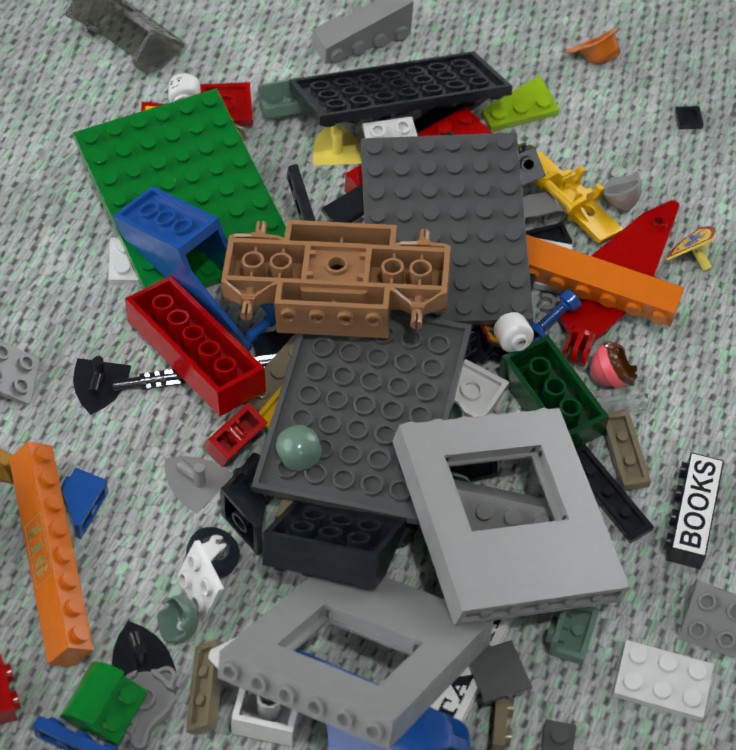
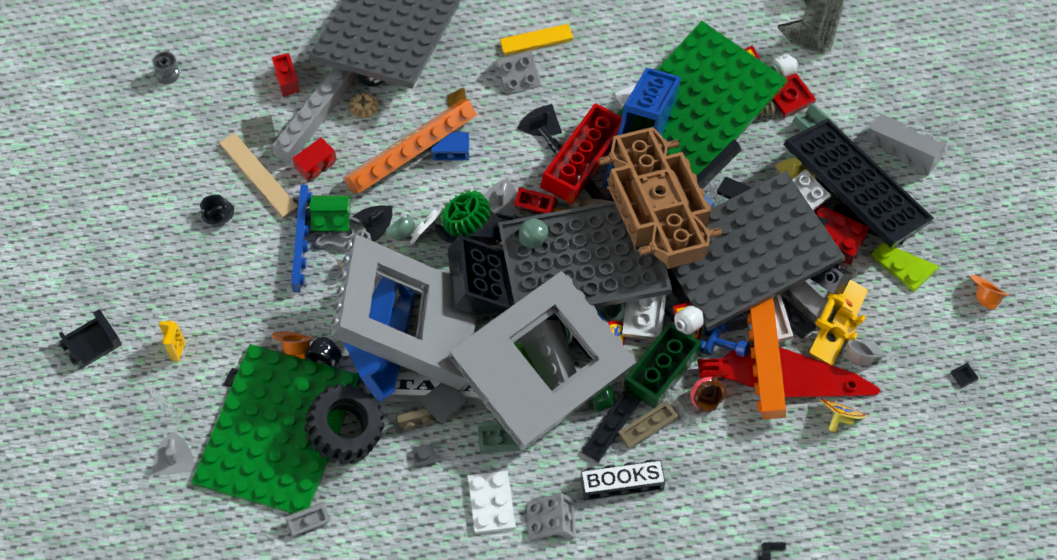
camera: 70 degrees right, 5 degrees up
(216, 496) = (465, 213): none -> green gear

